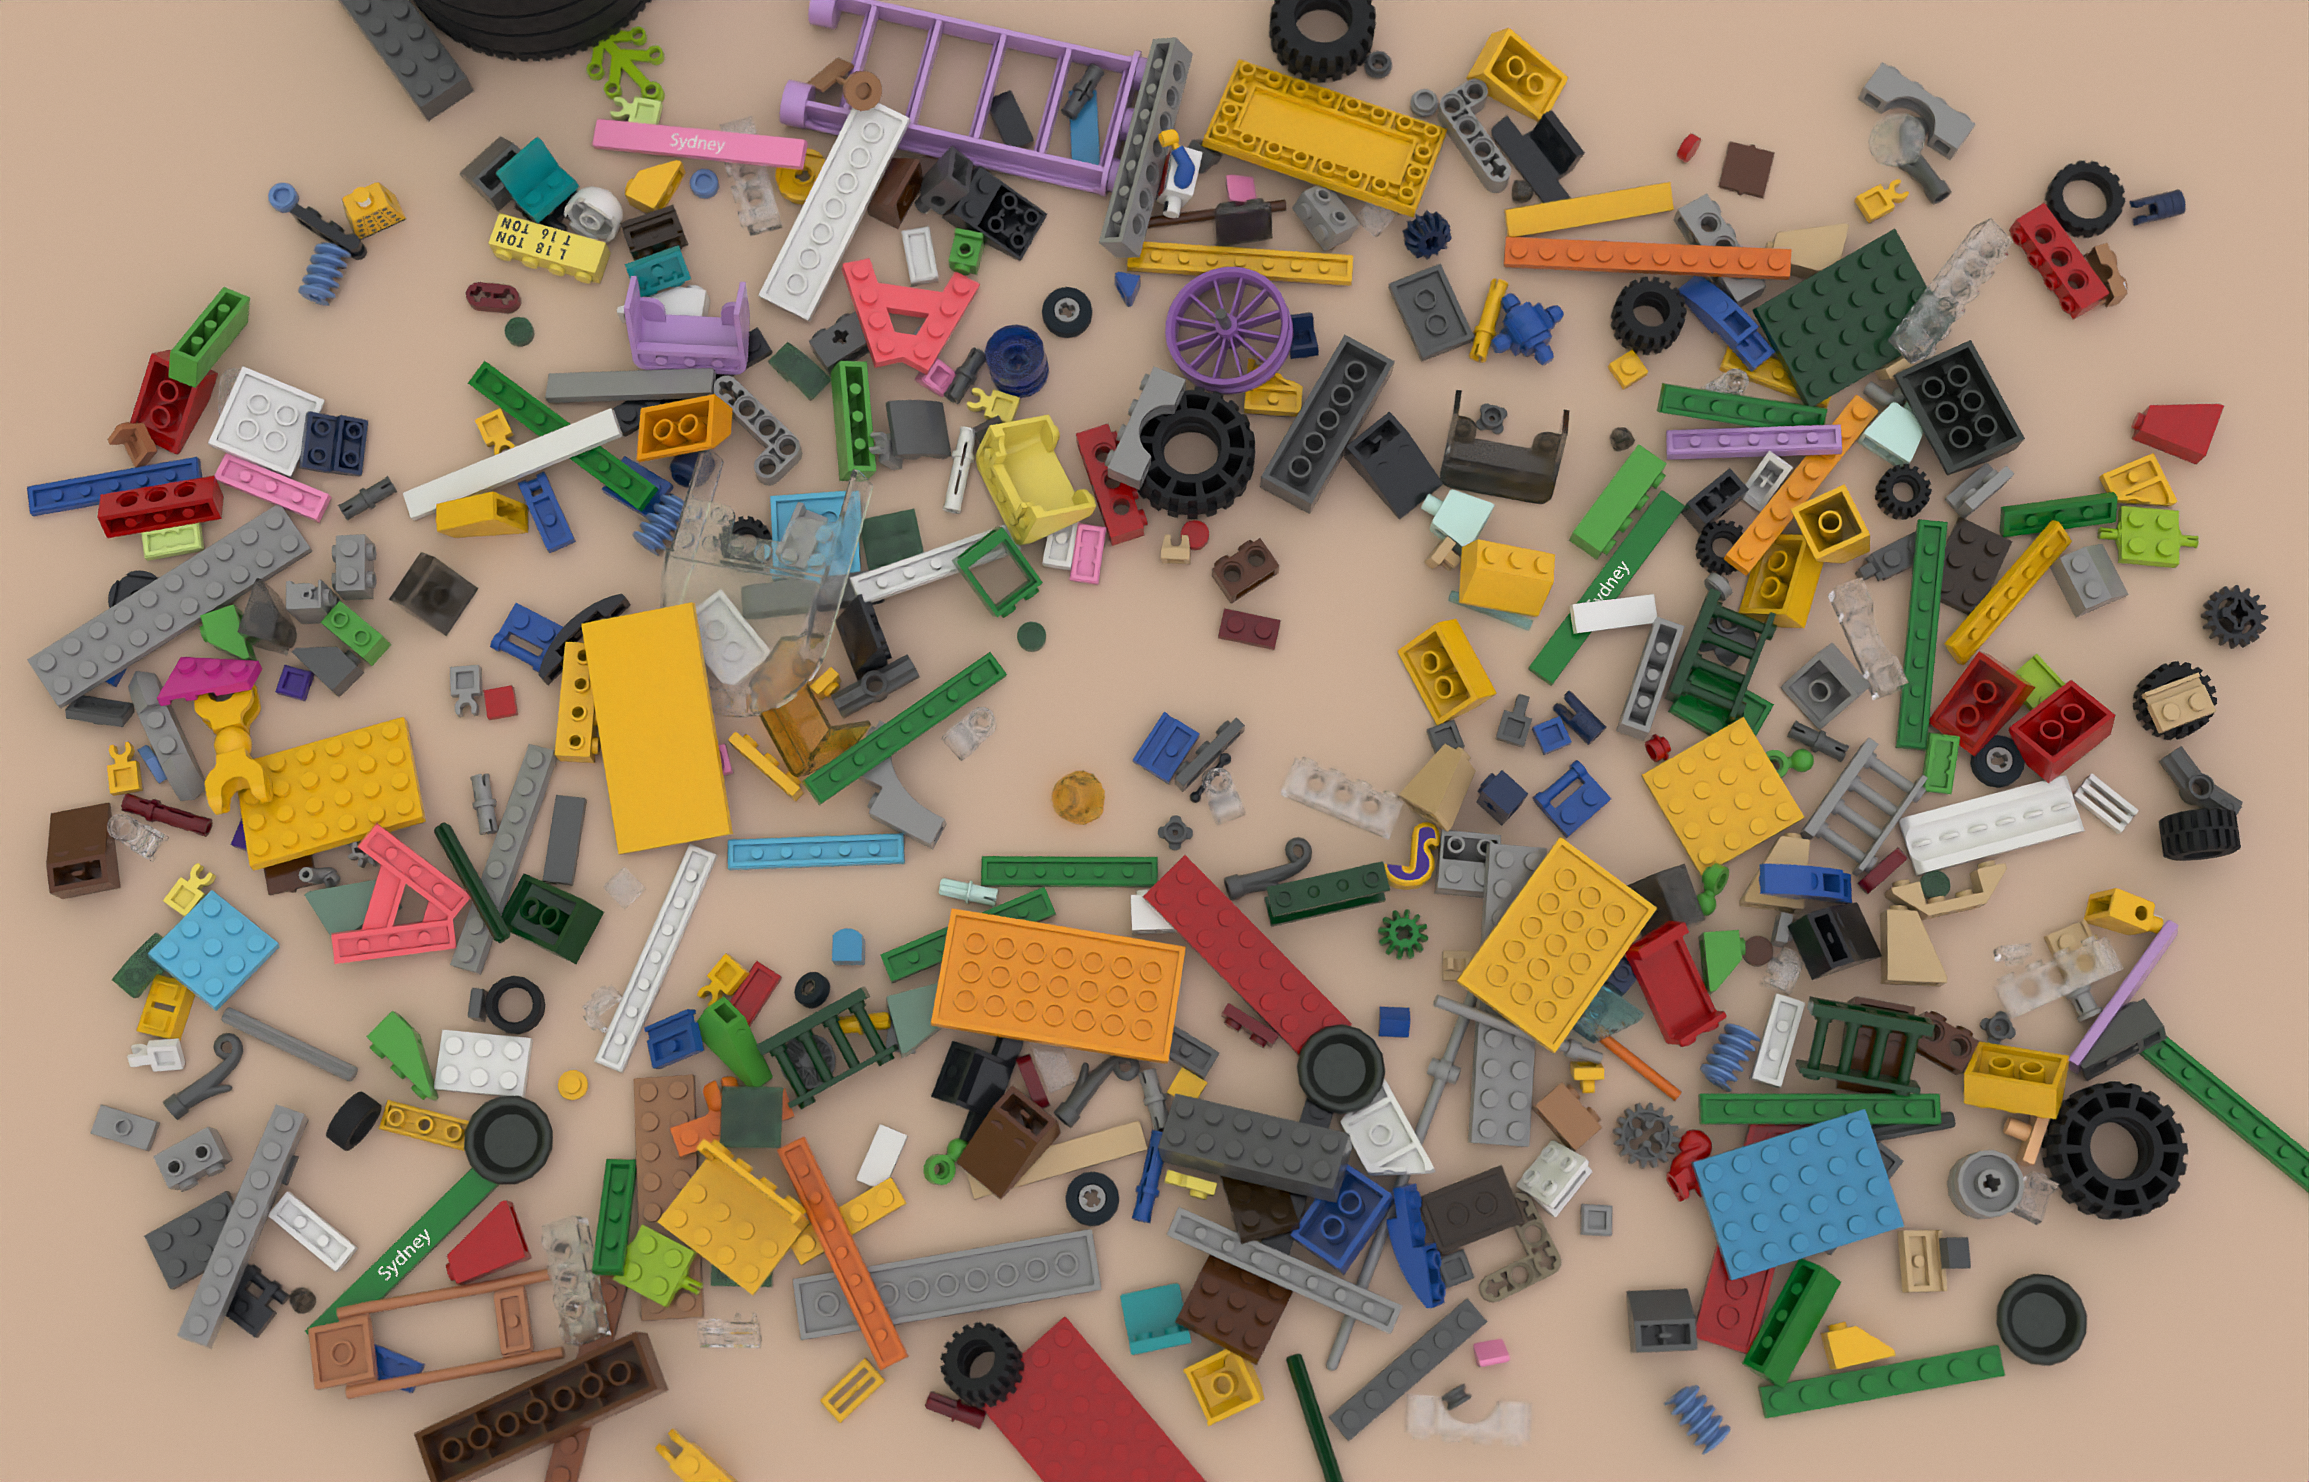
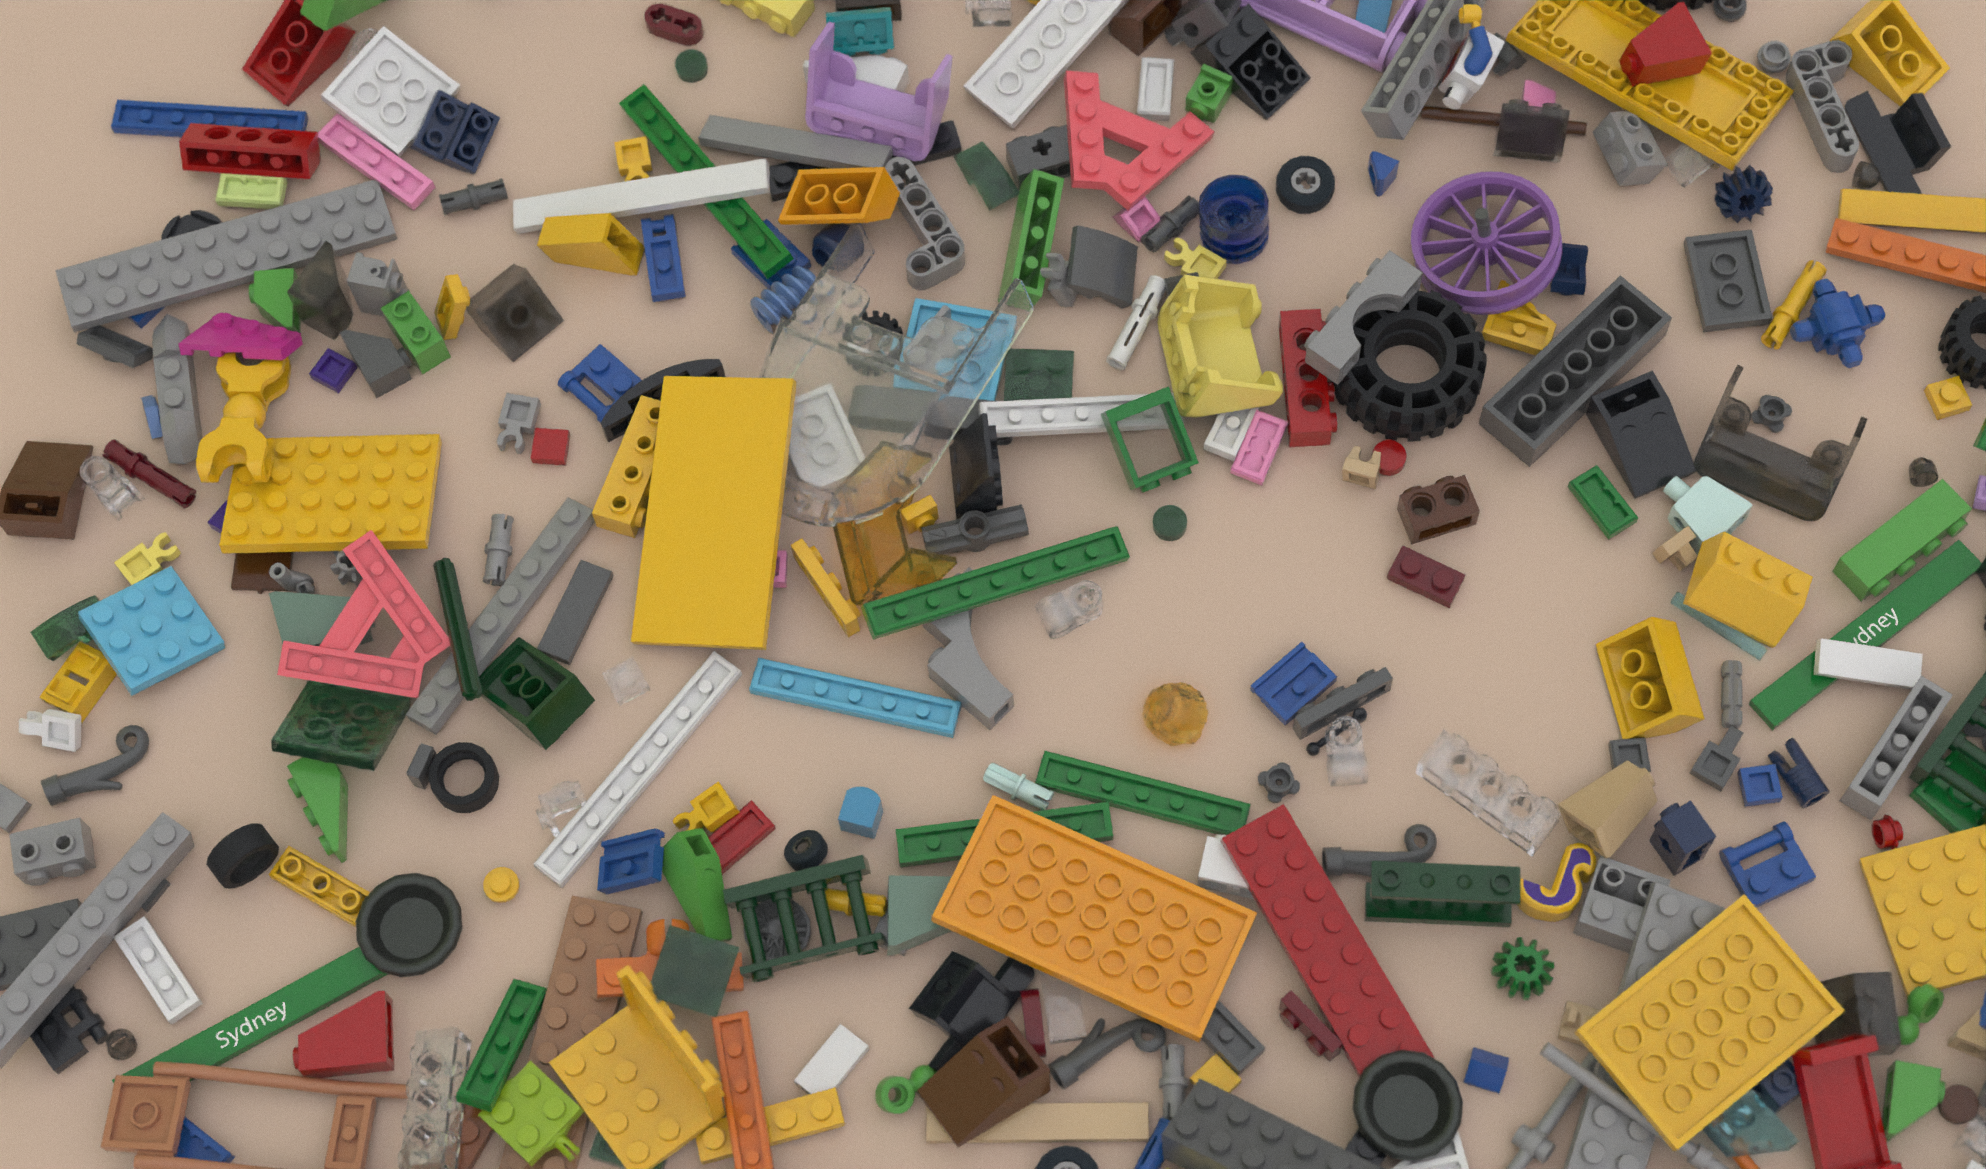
camera: 20 degrees right, 10 degrees down
(125, 774) = (120, 418): yellow plate -> none
(136, 441) = (246, 78): nougat bracket -> none
(289, 1044) = (201, 756): light grey axle -> none
(354, 567) = (437, 255): light grey brick -> none
(380, 604) = (451, 306): none -> yellow plate
(401, 991) = (341, 725): none -> clear green plate
(483, 1063) = (407, 834): white plate -> none
(1273, 264) = (1562, 188): yellow plate -> none
(1336, 123) = (1666, 49): none -> red slope
(1375, 530) = (1602, 502): none -> green plate
(1513, 665) = (1731, 694): none -> light grey axle

